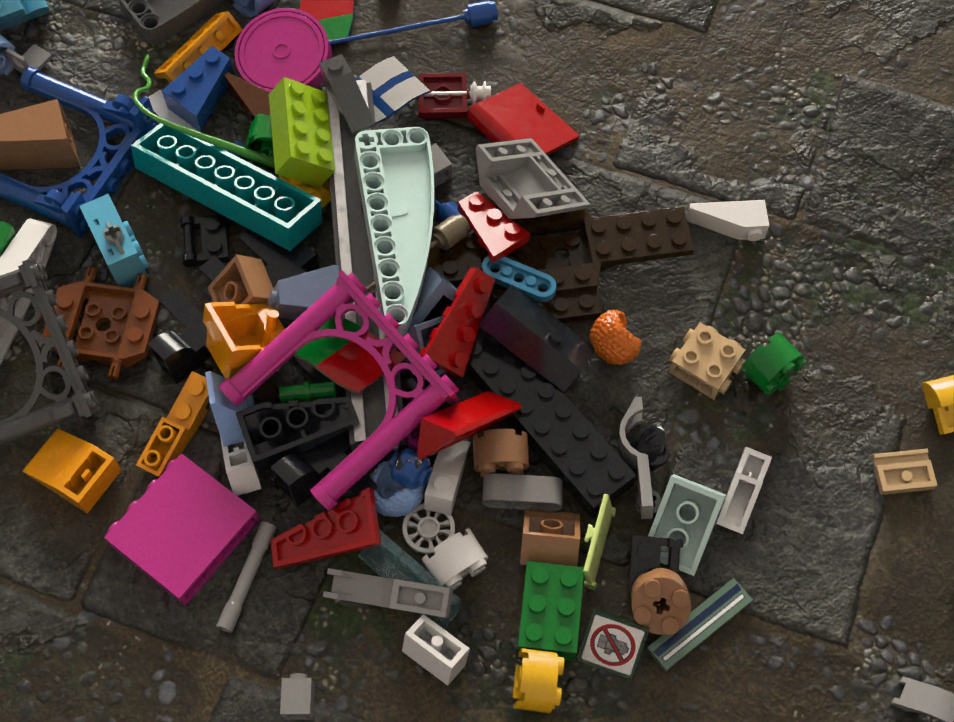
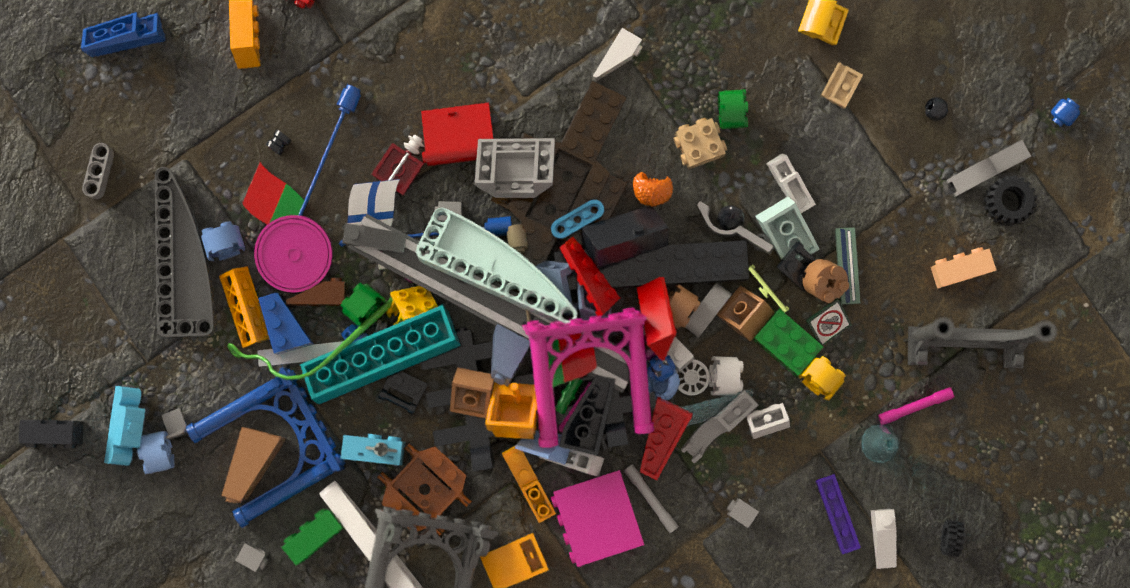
camera: 60 degrees left, 20 degrees up
(301, 132) = (380, 285): lime brick -> none
(492, 226) = (530, 211): wing -> none

